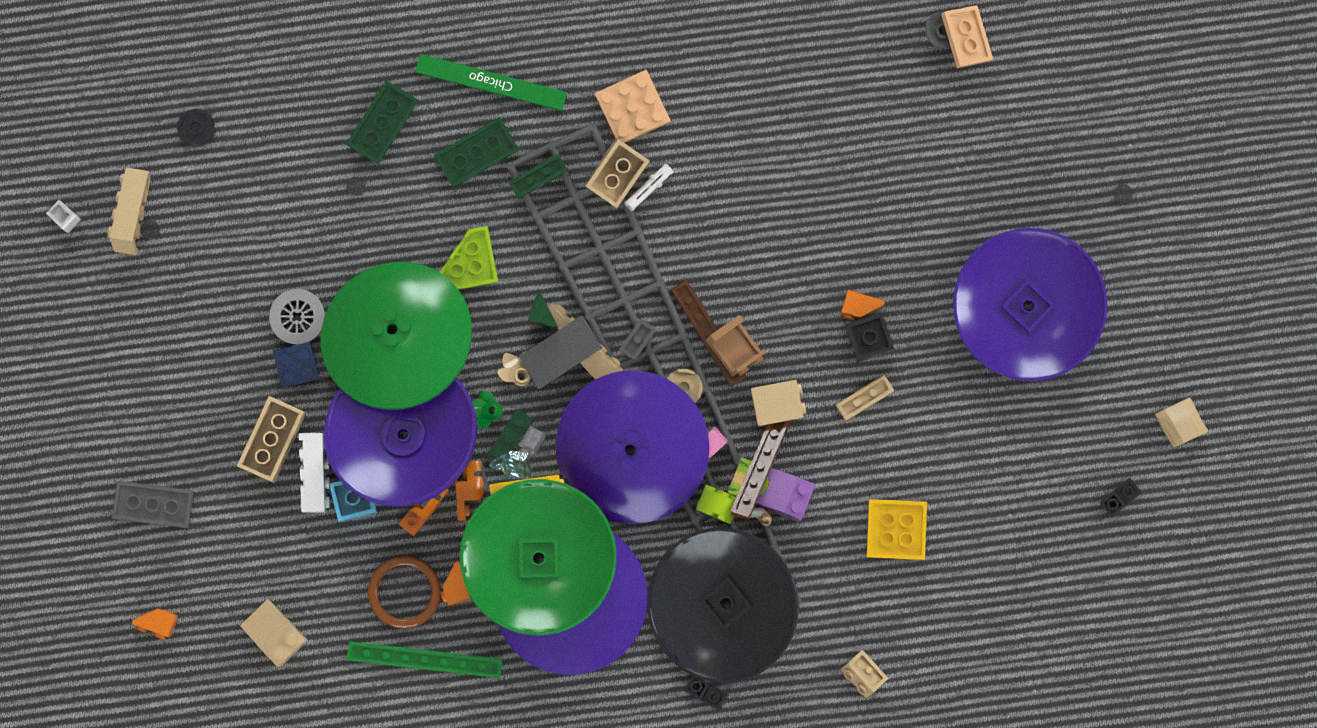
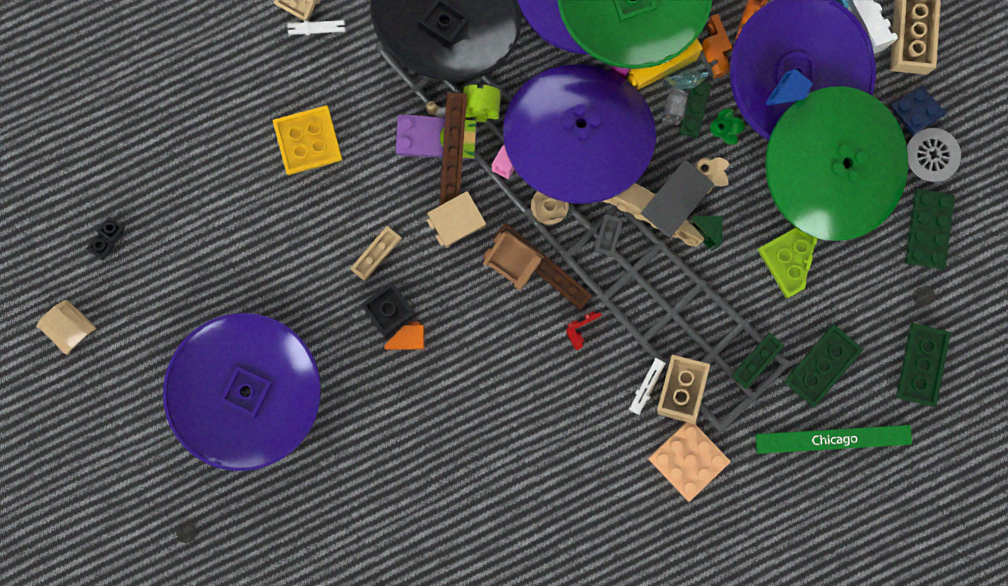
camera: 160 degrees right, 0 degrees up
(326, 247) = (929, 229): none -> dark green plate
(424, 413) = (790, 88): none -> blue slope
(700, 253) = (576, 338): none -> red bracket
(853, 640) = (316, 27): none -> white pin

